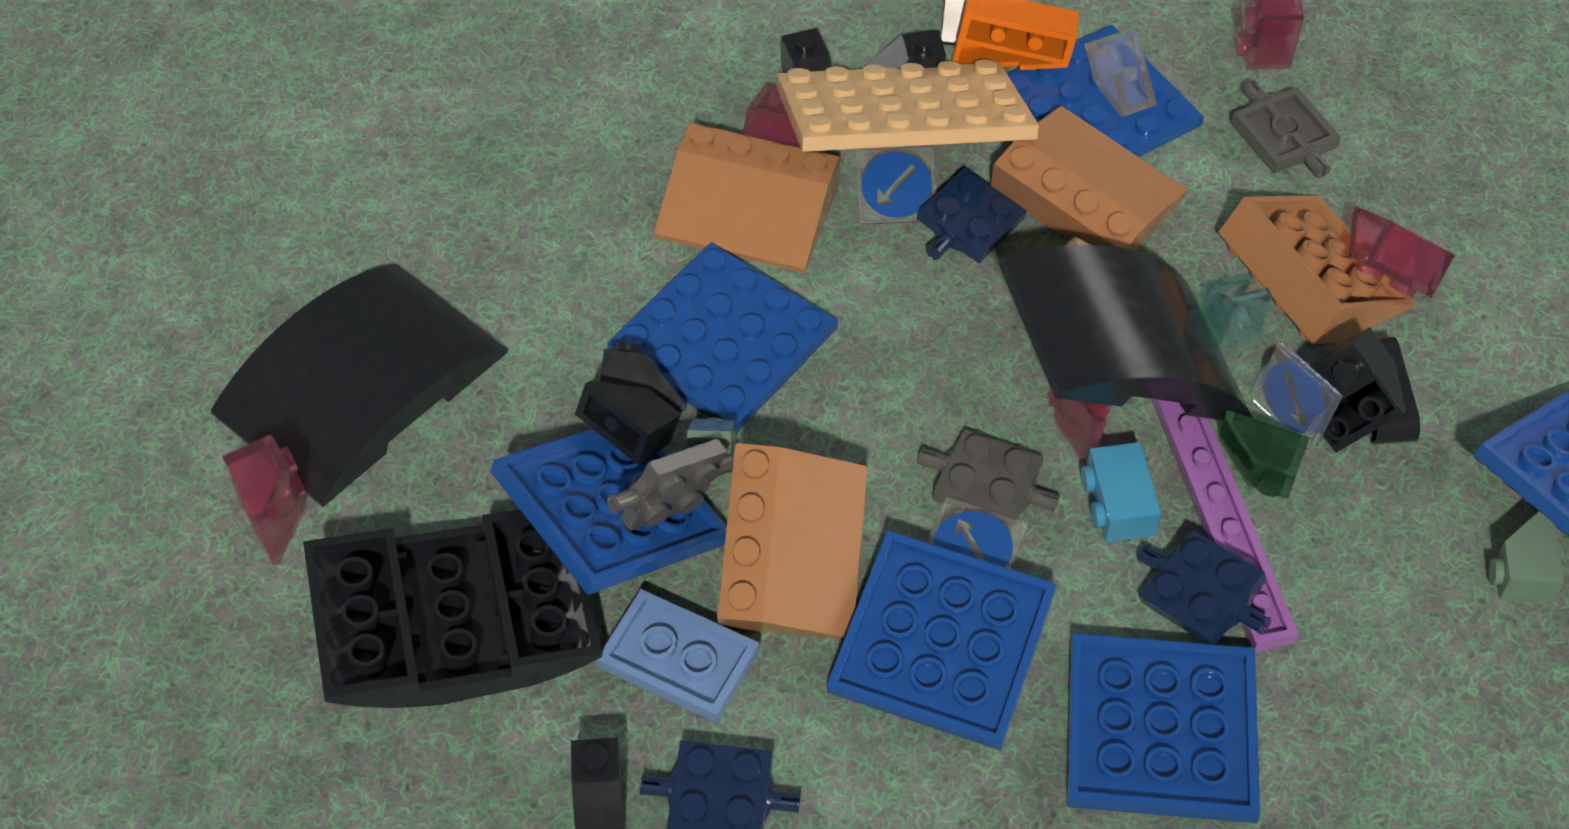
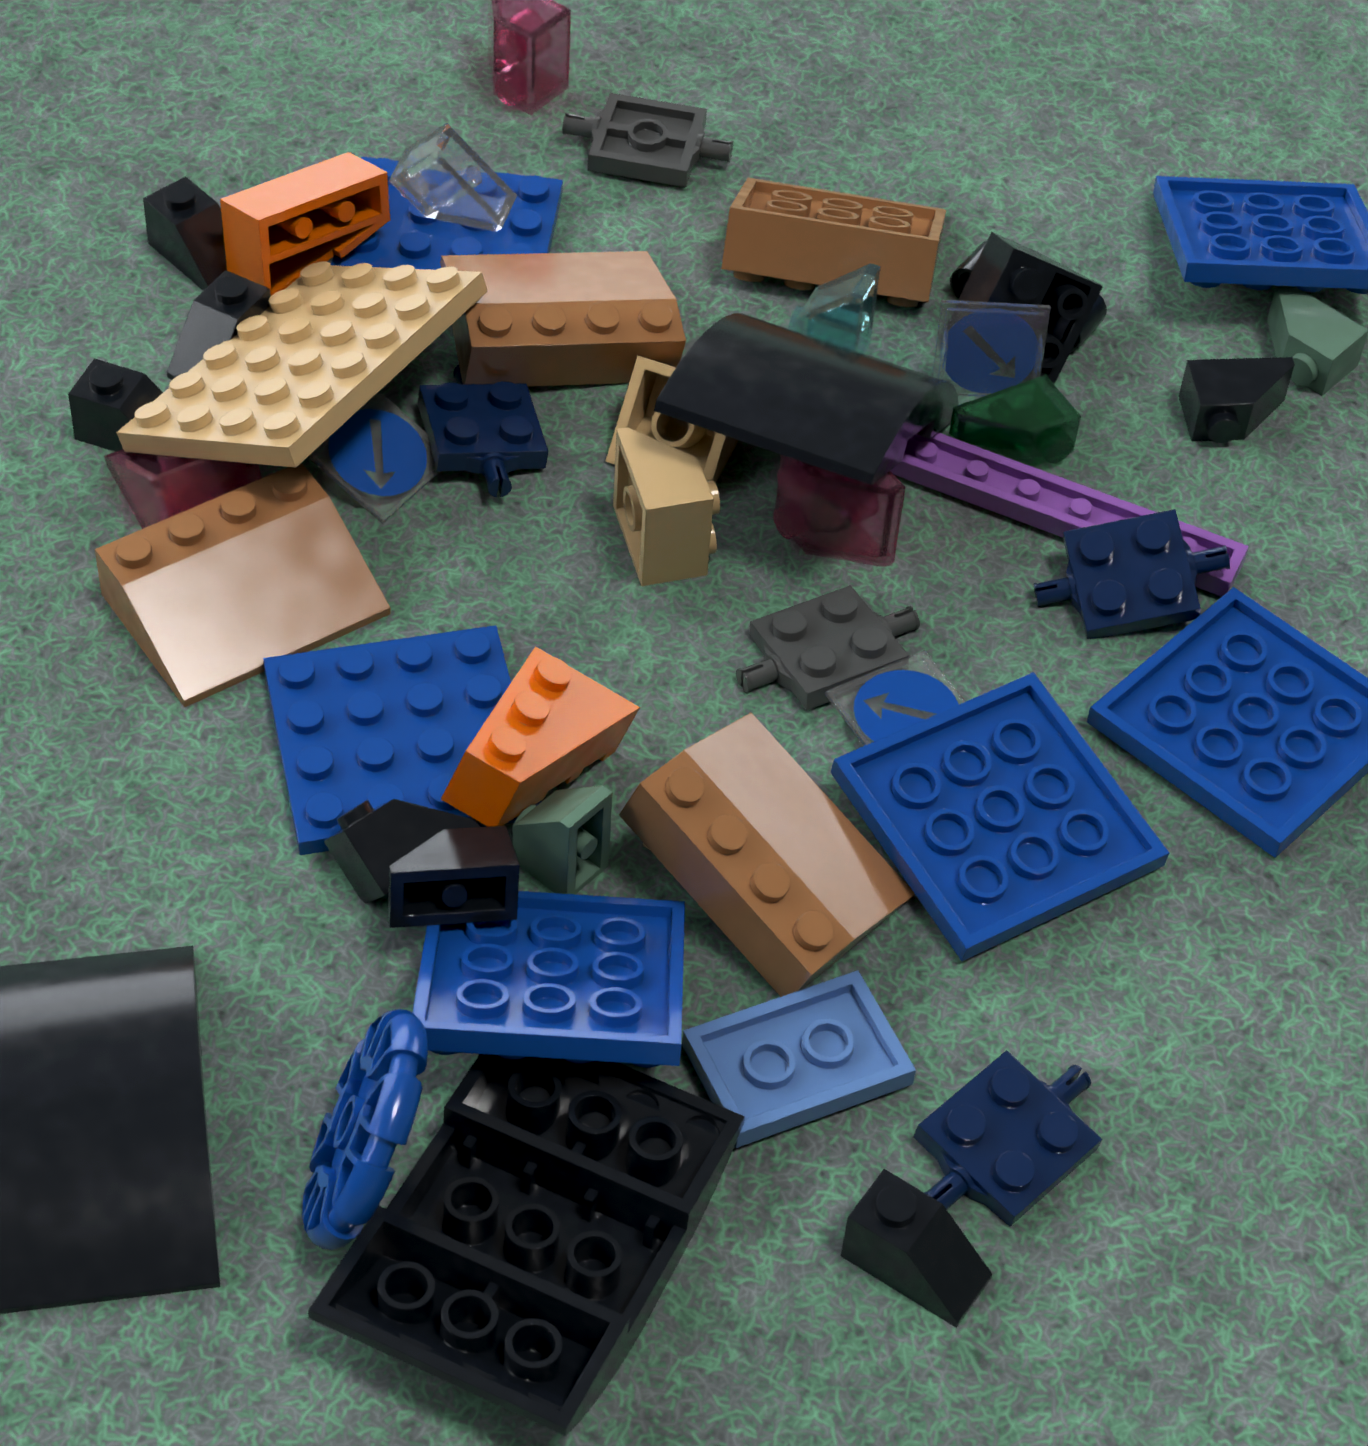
camera: 55 degrees left, 5 degrees down
(268, 492) = (176, 1319): clear pink slope -> none
(425, 486) = (361, 1134): none -> blue plate
(671, 485) = (623, 883): dark grey plate -> none
(754, 384) = (536, 738): none -> orange wedge
(982, 331) = (663, 508): none -> tan slope
(1121, 492) = (958, 555): dark azure brick -> none
(1397, 253) = (896, 167): clear pink slope -> none
(1425, 549) = (1232, 396): none -> black slope

